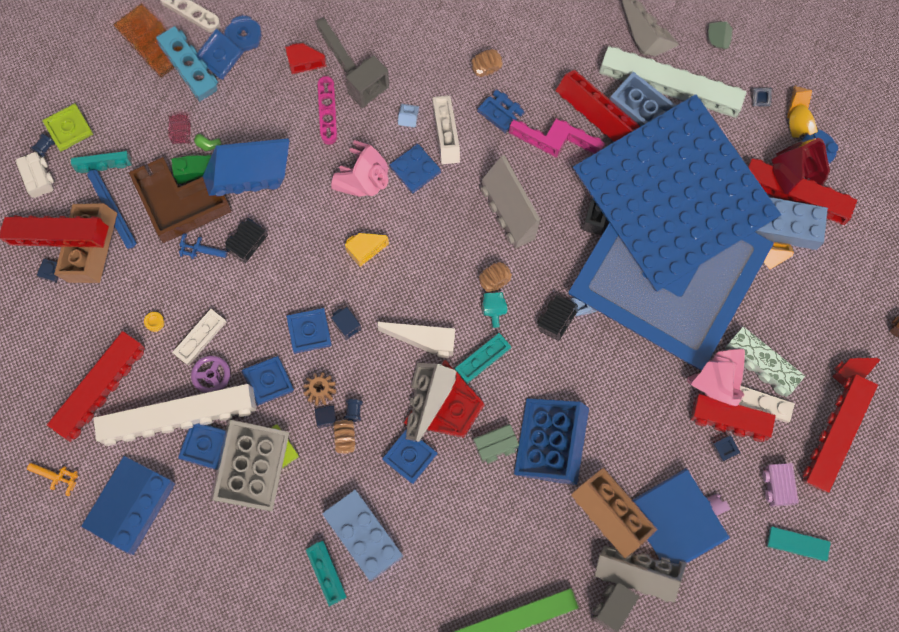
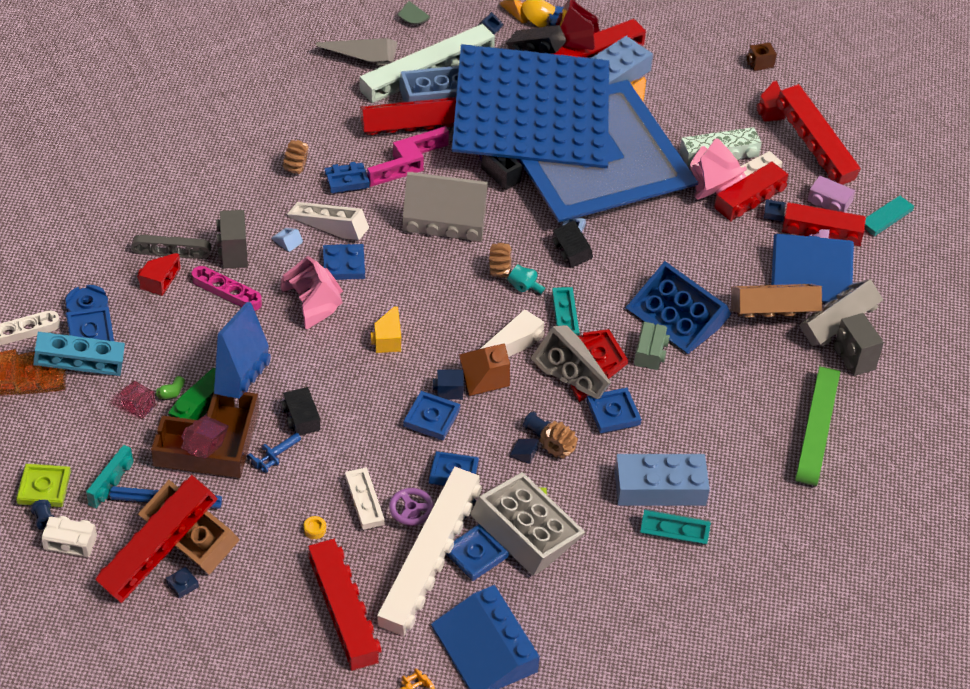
camera: 55 degrees left, 25 degrees down
(157, 198) = (204, 437): none -> clear pink brick
(319, 381) = (495, 436): medium nougat gear -> none
(375, 338) = (486, 369): none -> dark orange slope
(740, 498) = (808, 220): none -> red brick
(758, 145) = (537, 40): none -> black brick

